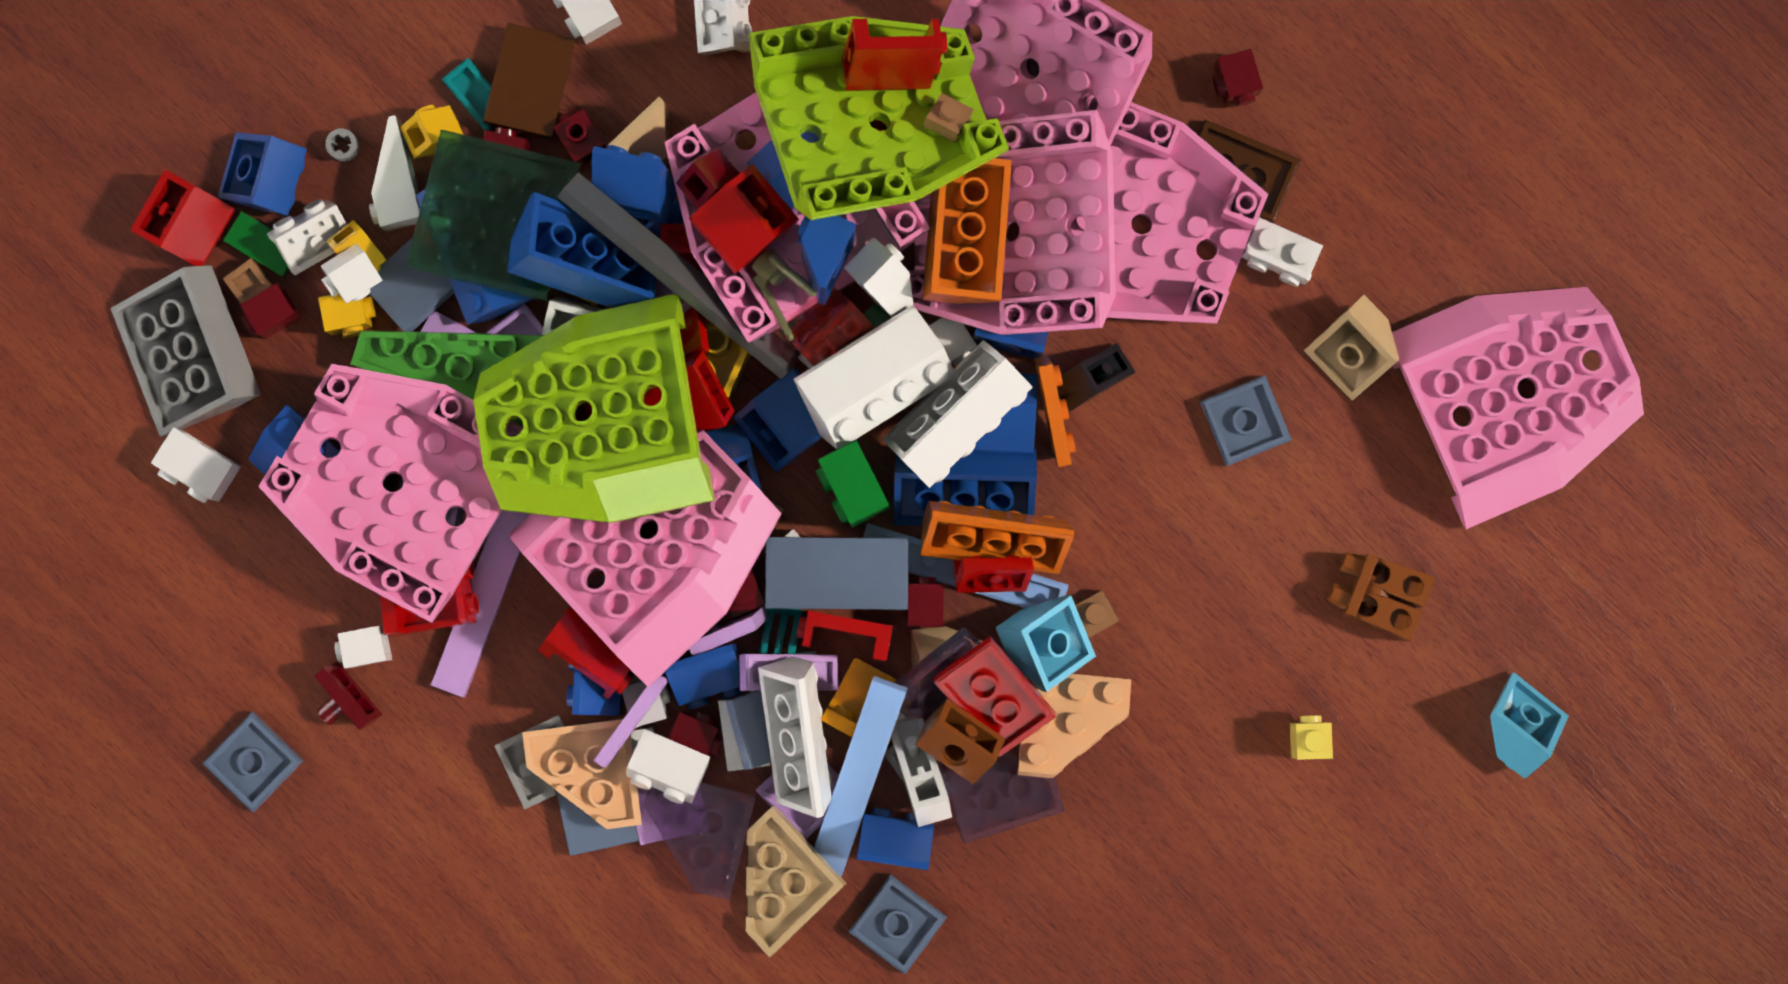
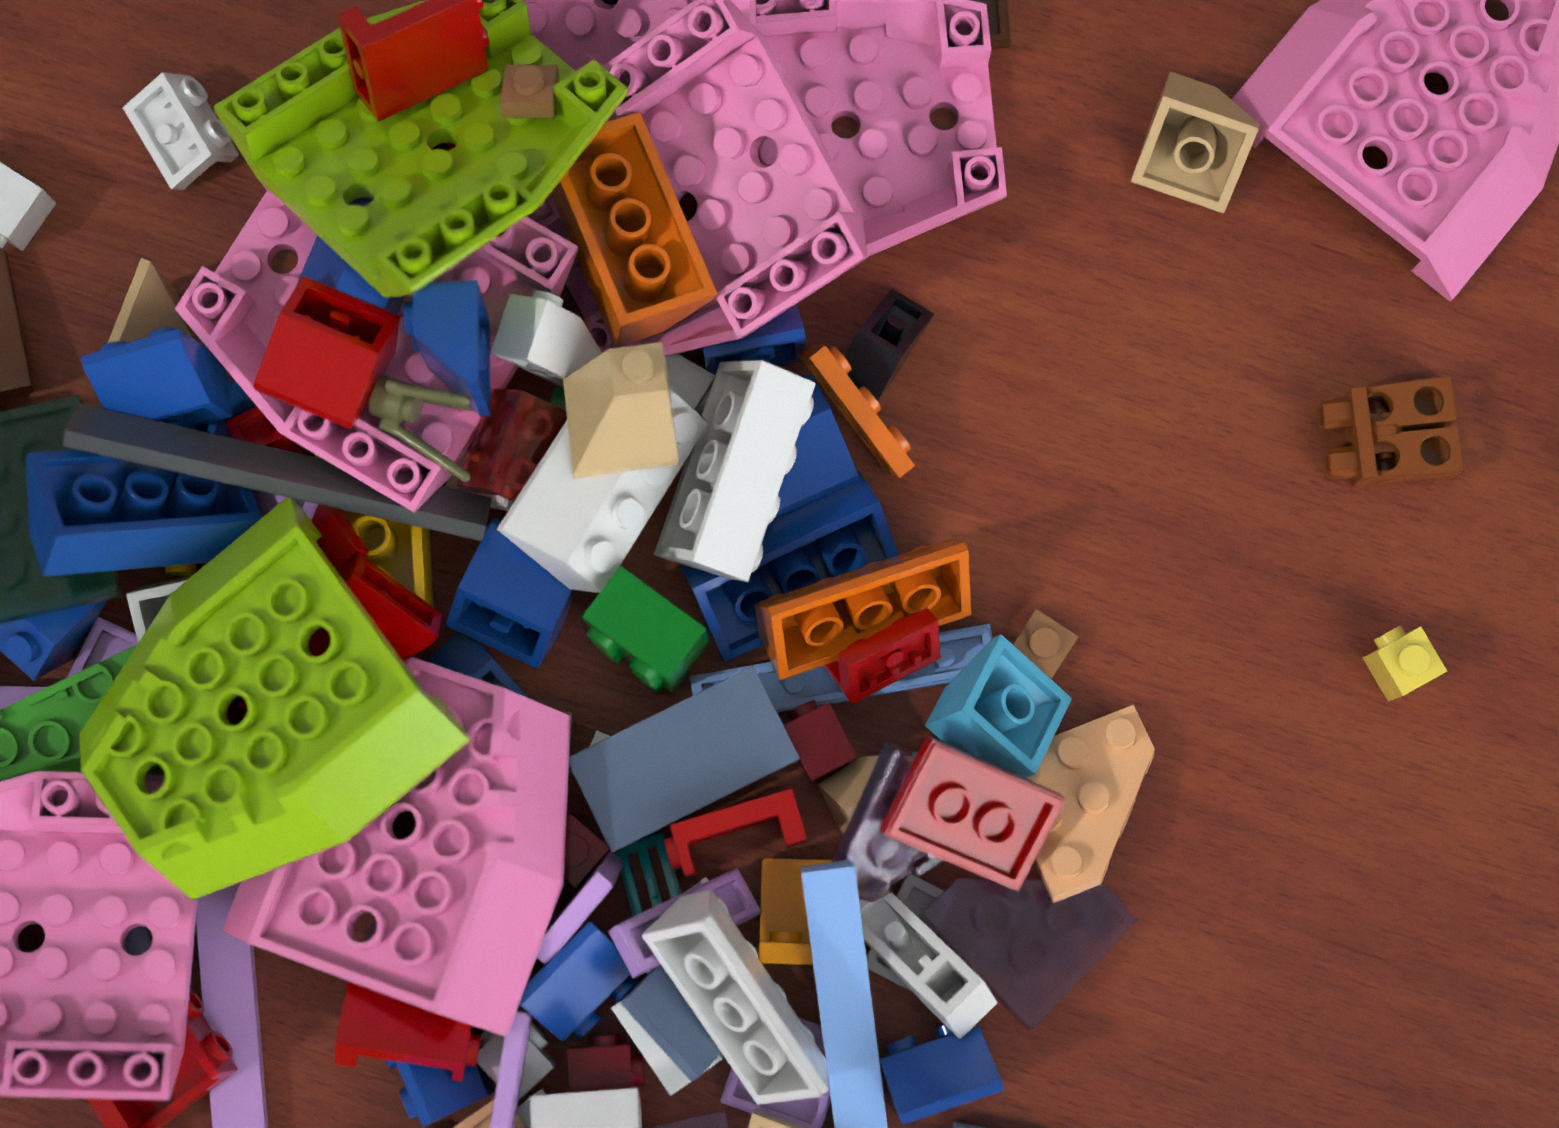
camera: 30 degrees left, 5 degrees down
(578, 135) = (58, 365): dark red brick -> none
(706, 177) = (248, 323): dark red brick -> none
(904, 346) = (621, 412): none -> tan slope
(960, 741) = (958, 896): dark orange brick -> none
(1245, 420) = (1104, 304): sand blue tile -> none
(1281, 252) = (1040, 74): white bracket -> none

